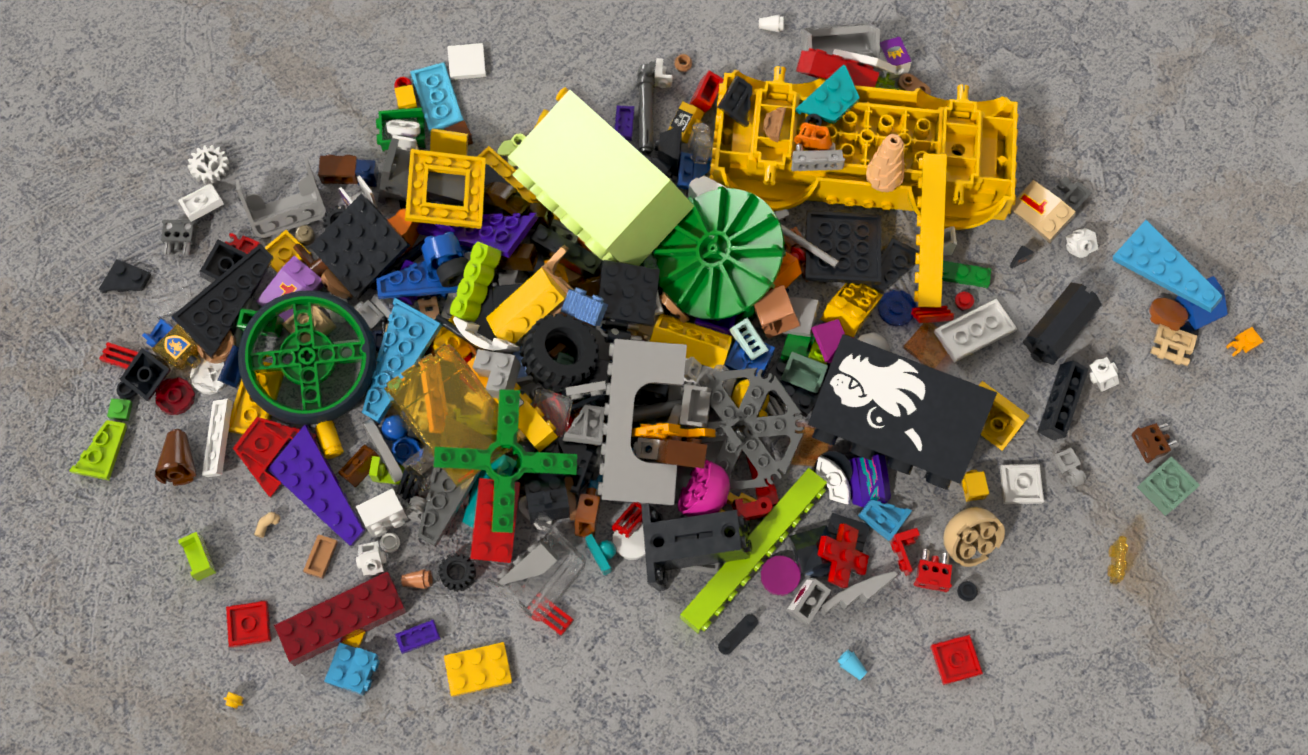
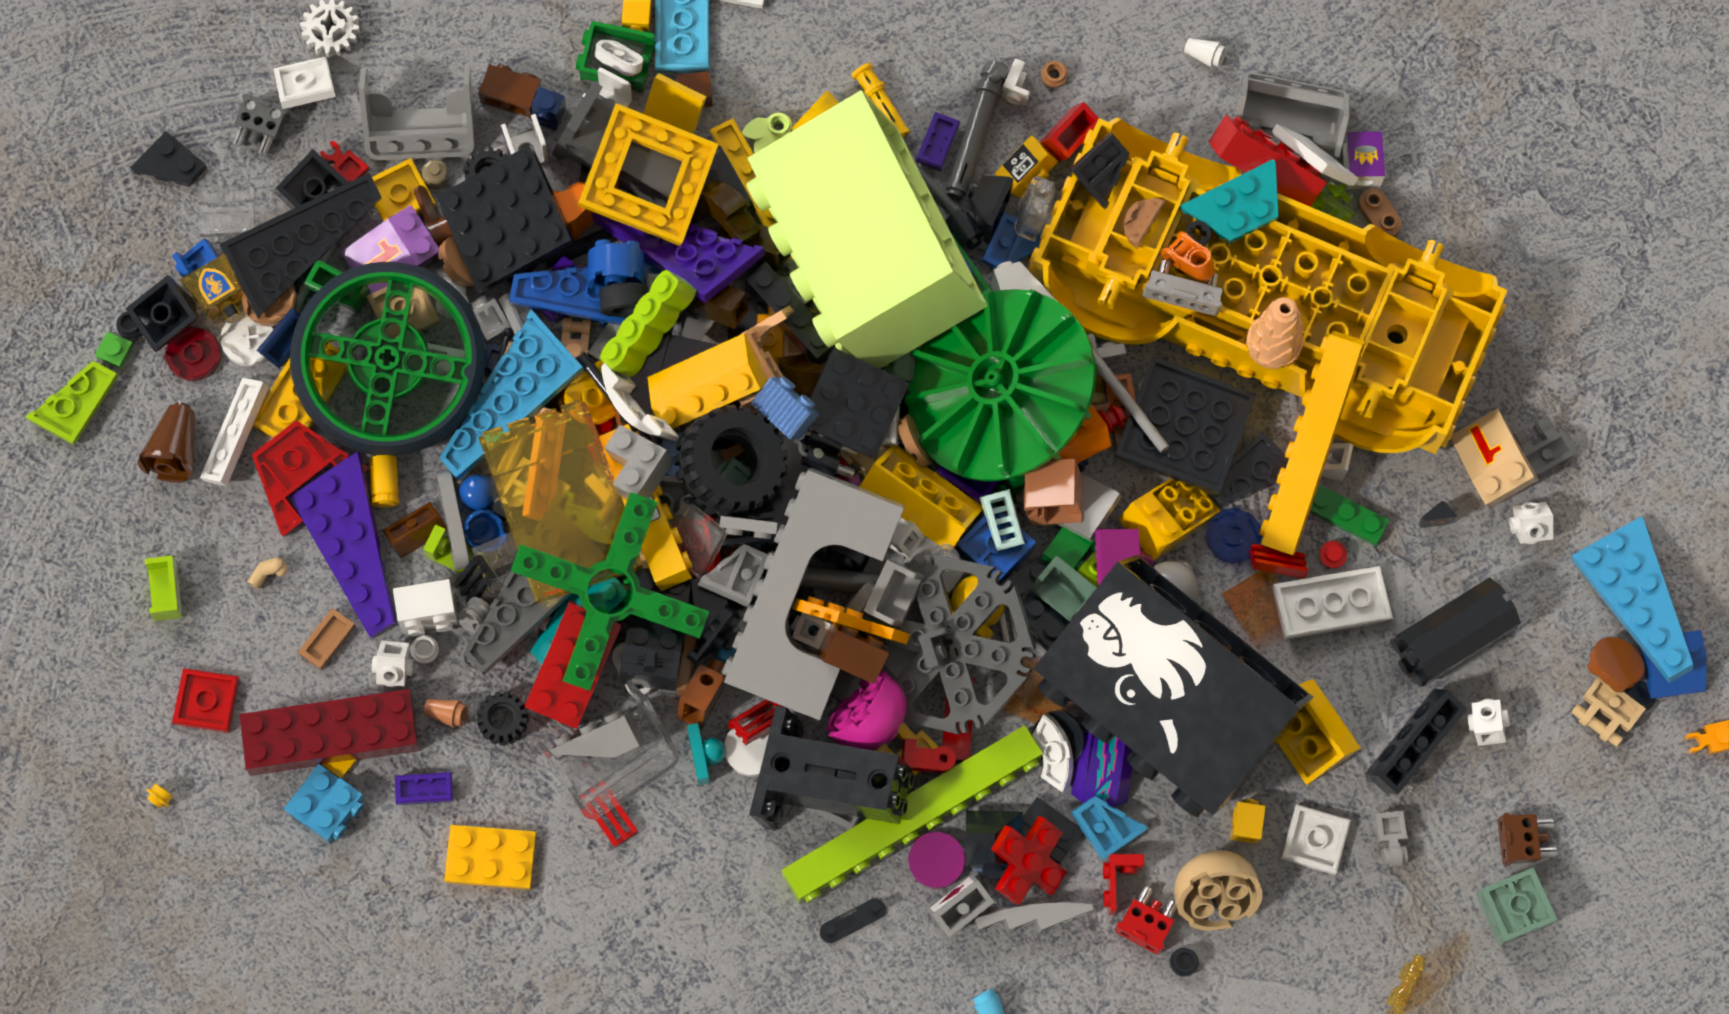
camera: 15 degrees right, 5 degrees up
(107, 351) = (118, 262): red tile -> none

